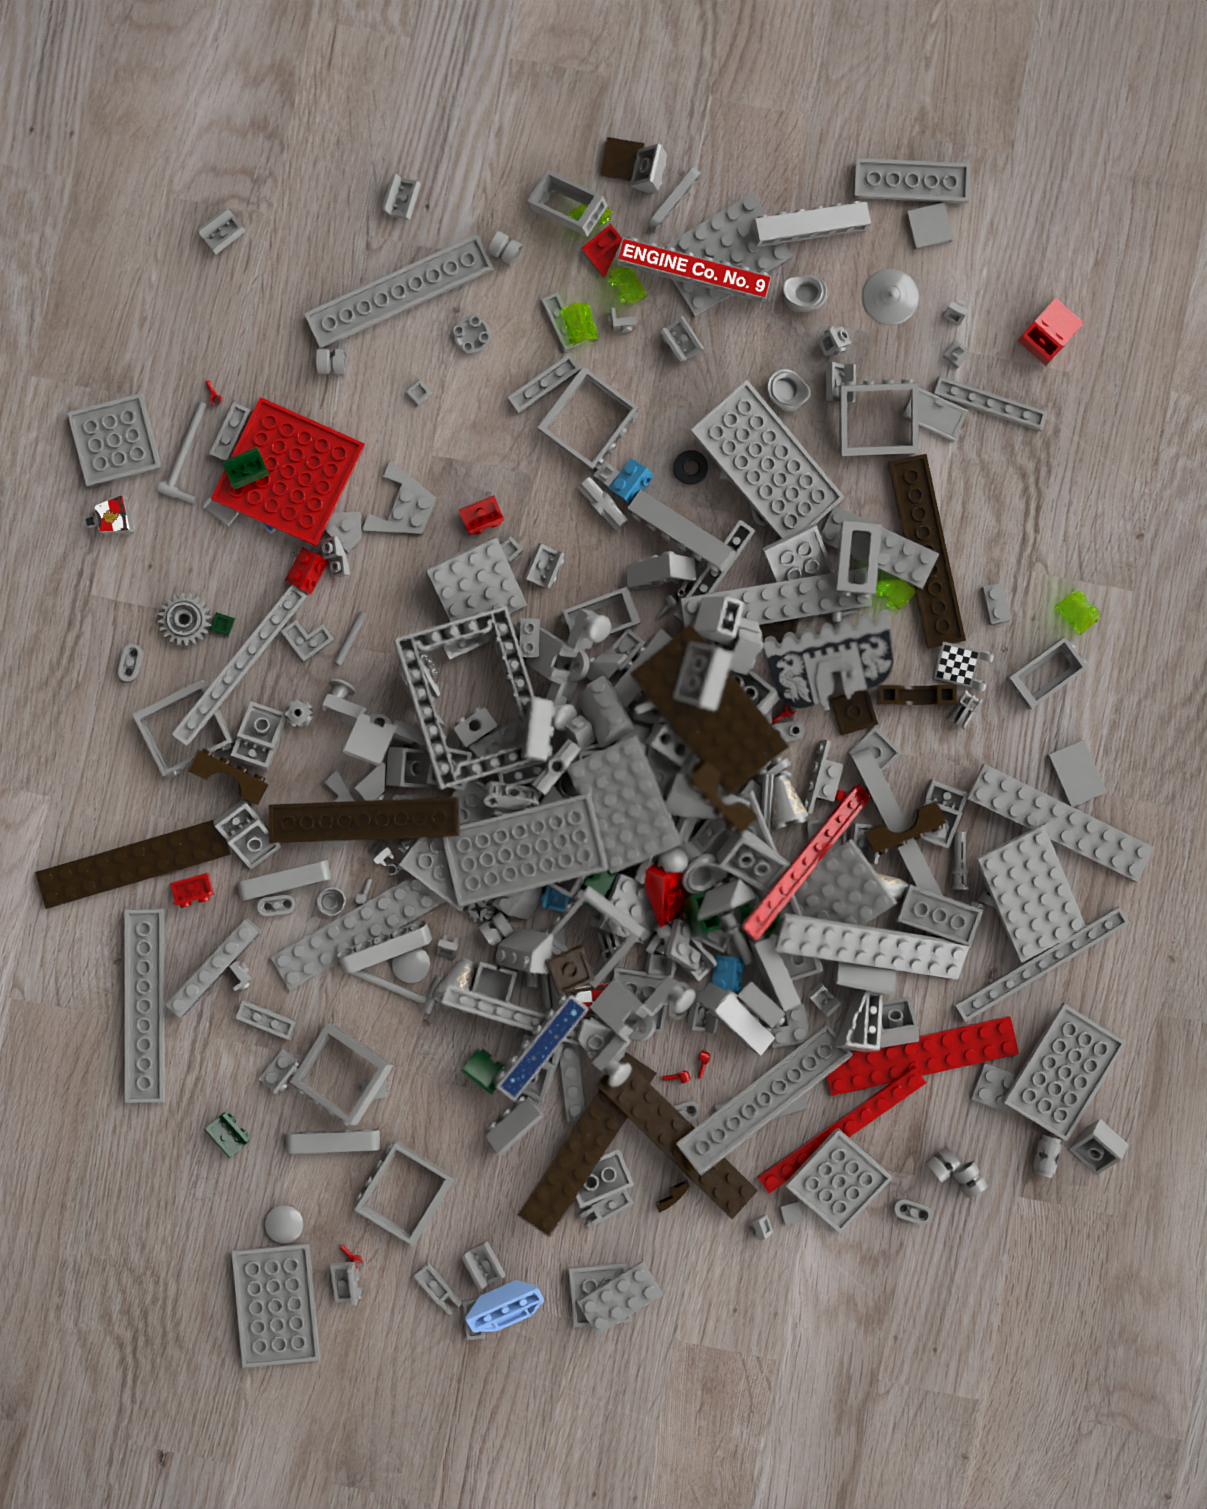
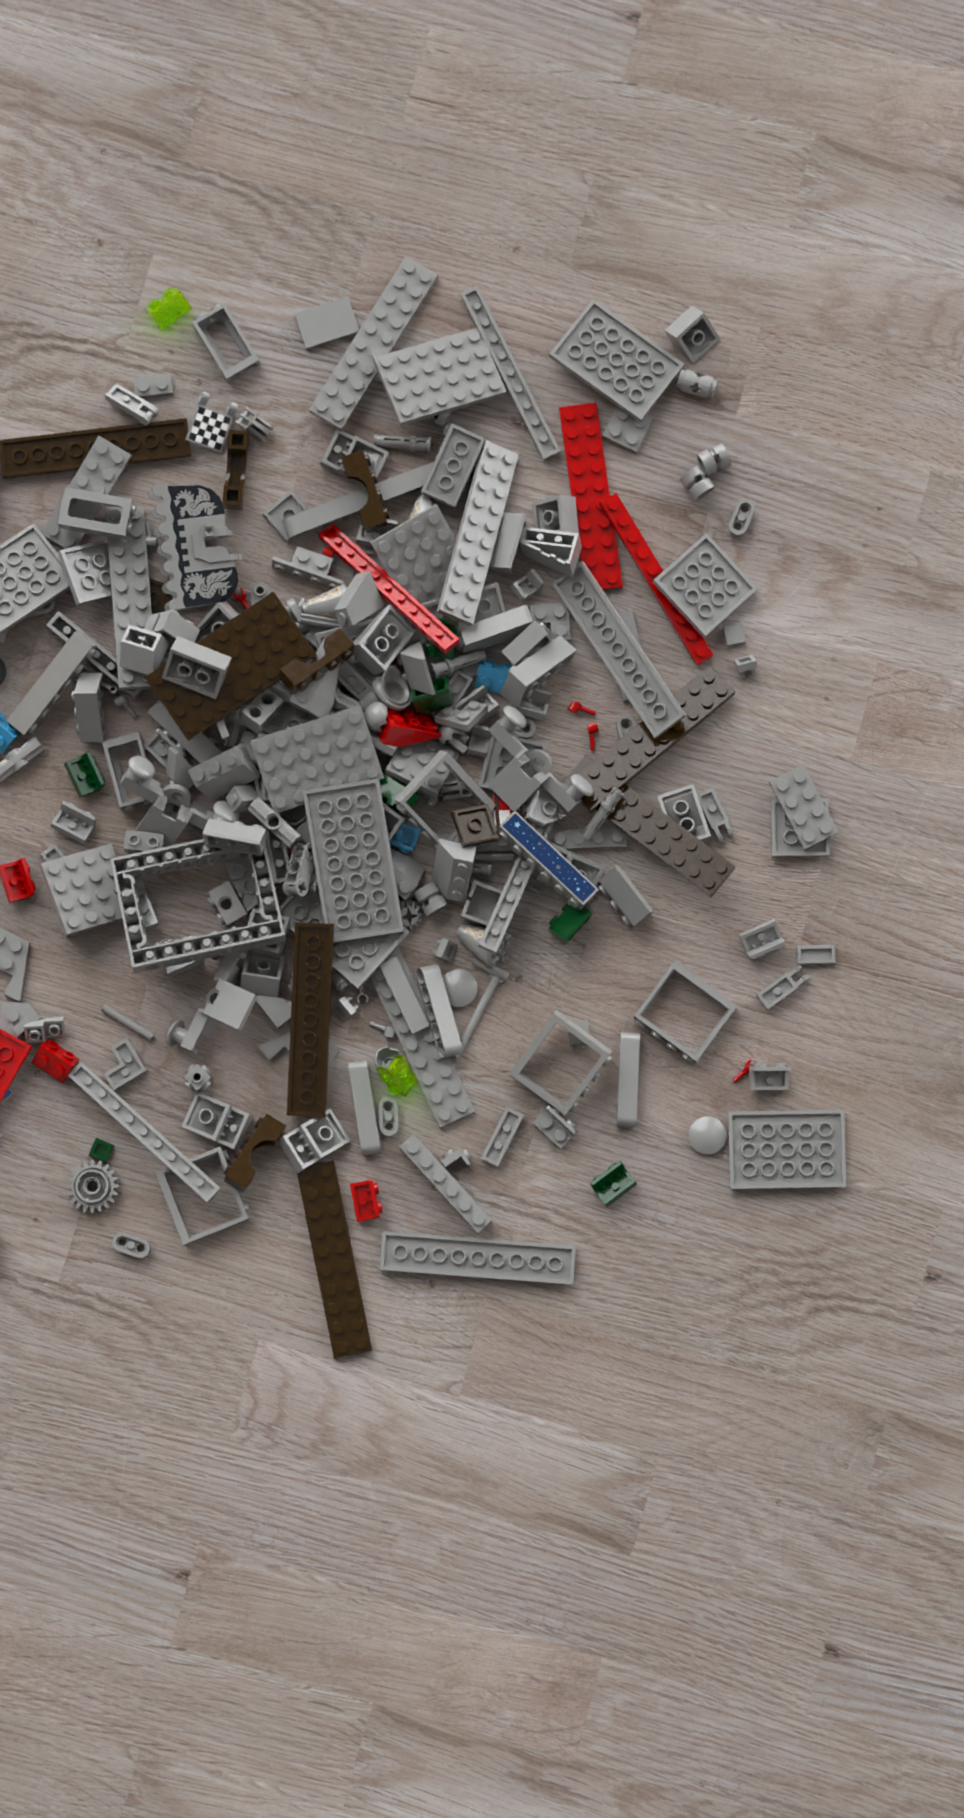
camera: 90 degrees left, 5 degrees down
(315, 913) = (398, 1076): none -> clear neon green bracket
(397, 911) = (404, 995): none -> light grey tile
(504, 1306) = (804, 920): light blue wedge -> none
(592, 1094) = (604, 810): none -> light grey pin
(593, 572) = (85, 774): none -> dark green bracket
(677, 1192) = (705, 744): dark brown slope -> none
(790, 832) = (358, 601): none -> light grey slope
(854, 713) = (248, 532): dark brown tile -> none
(895, 592) = (133, 481): clear neon green slope -> none
(975, 584) = (131, 404): none -> light grey plate

